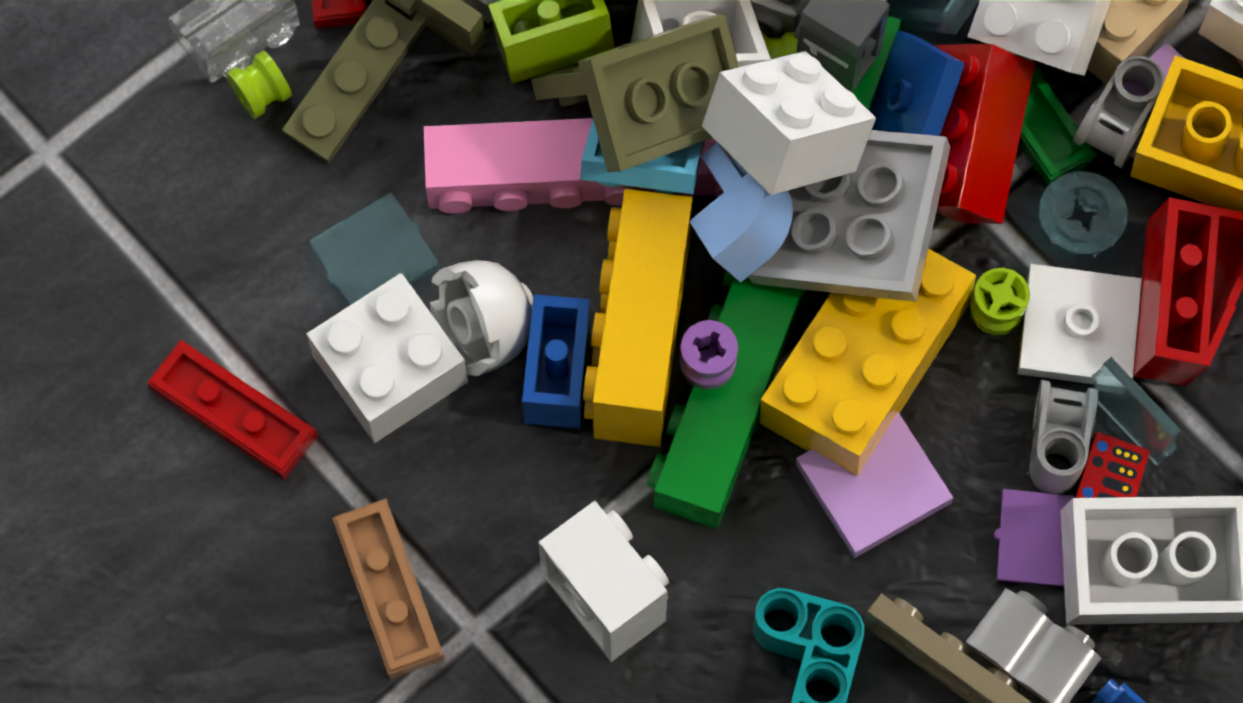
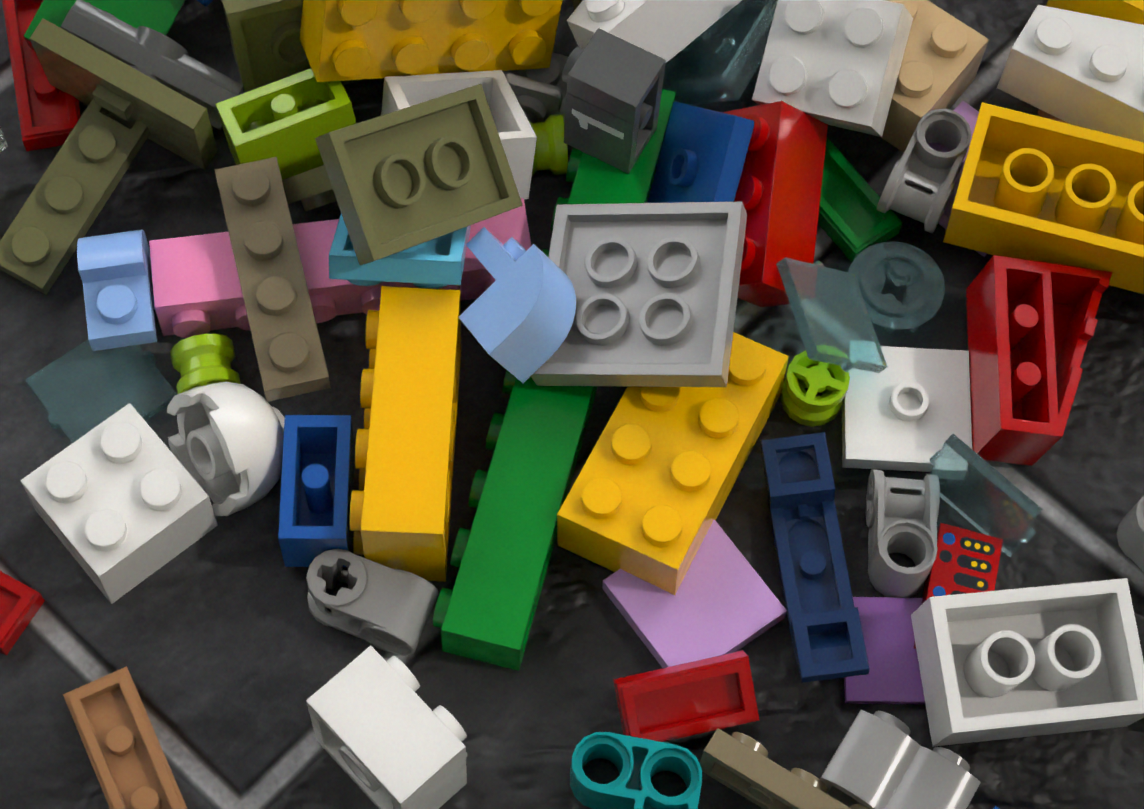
camera: 10 degrees left, 5 degrees down
(394, 168) = (117, 289): none -> light blue brick
(465, 239) = (204, 361): none -> lime wheel
(529, 170) = (272, 279): none -> dark tan plate
(603, 462) = (379, 605): none -> light grey piece
(706, 367) = (492, 483): medium lavender wheel -> none
(788, 122) = (562, 195): white brick -> none
(859, 565) = (687, 698): none -> red tile
(980, 453) = (812, 559): none -> dark blue slope
(1019, 239) = (831, 316): none -> clear light blue piece

